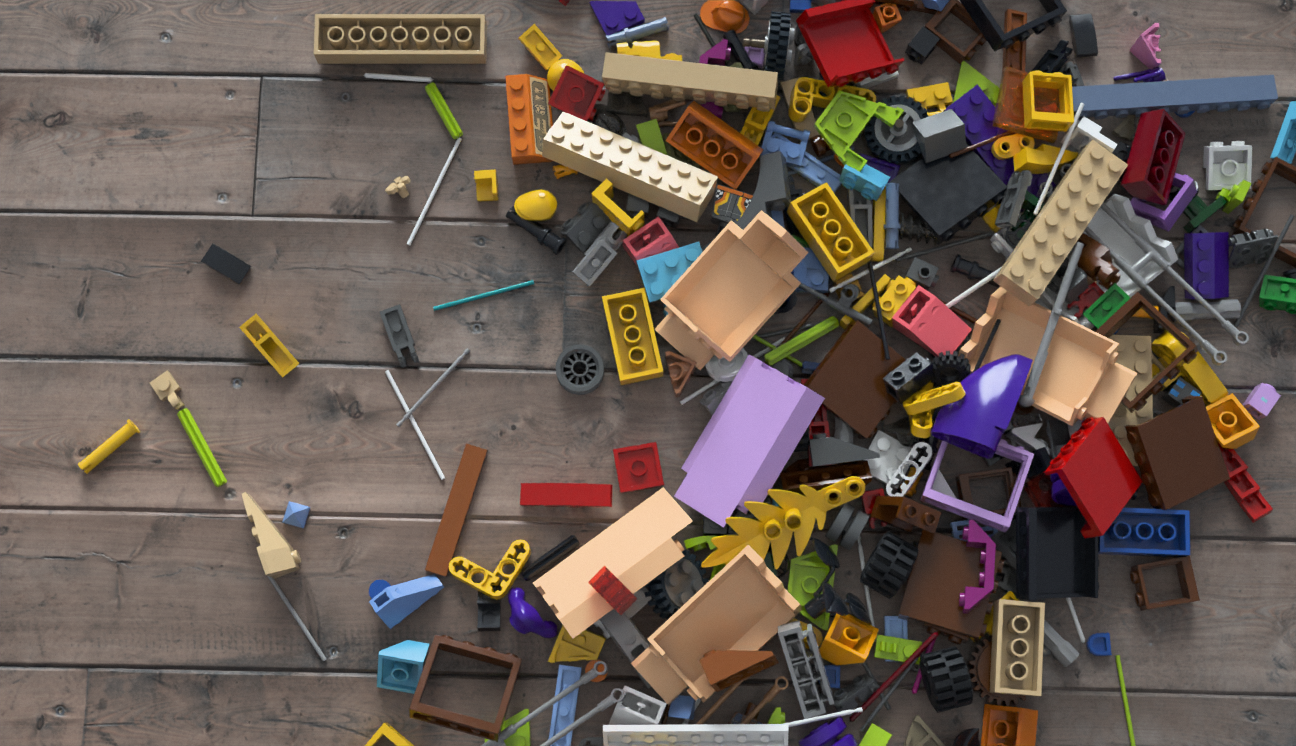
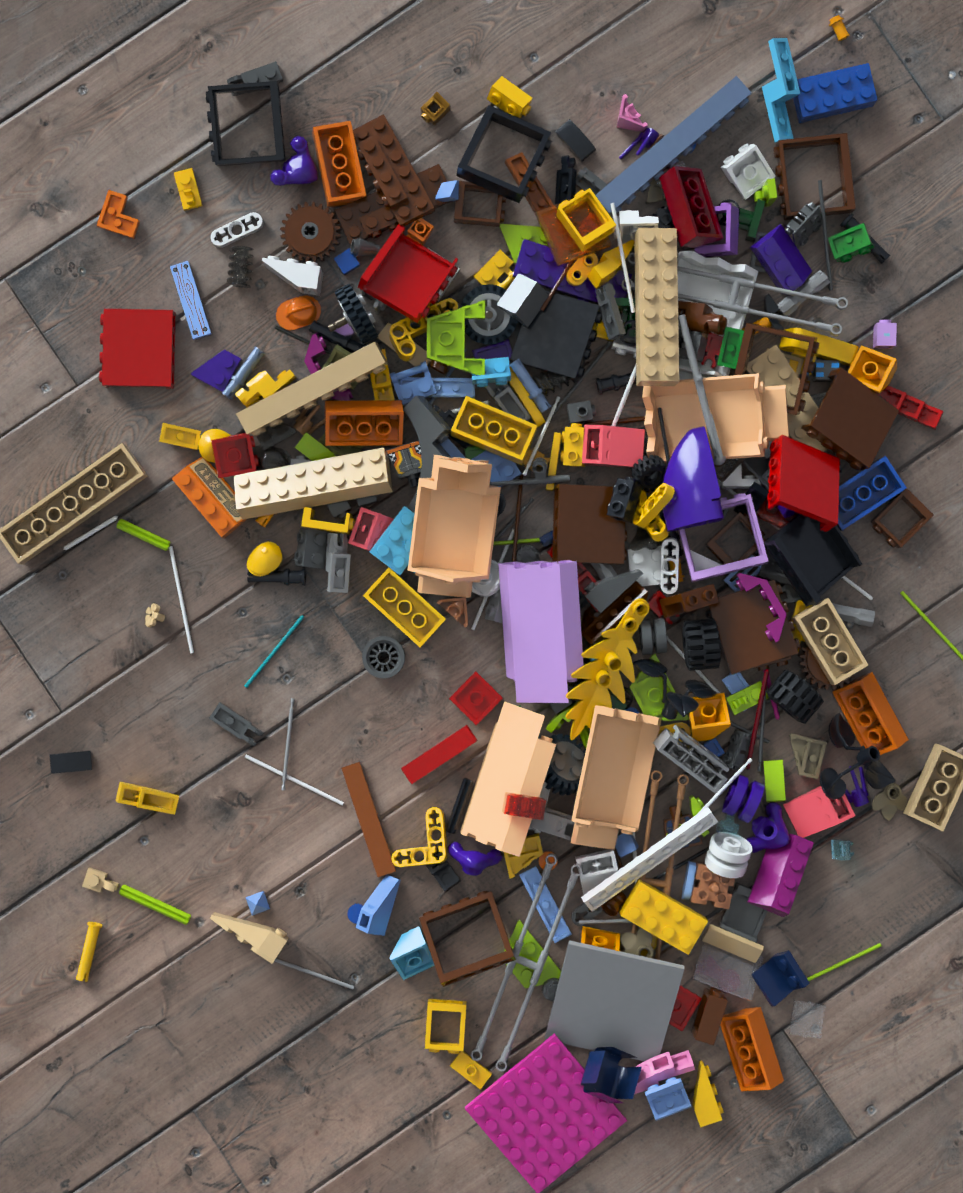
camera: 30 degrees left, 10 degrees up
(486, 185) = (217, 569): yellow panel -> none
(732, 666) = (638, 800): dark orange slope -> none
(801, 340) = (527, 523): lime axle -> none
(879, 313) = (568, 464): black piece -> none
(922, 45) = (461, 234): black brick -> none
(1099, 644) = (884, 593): blue tile -> none

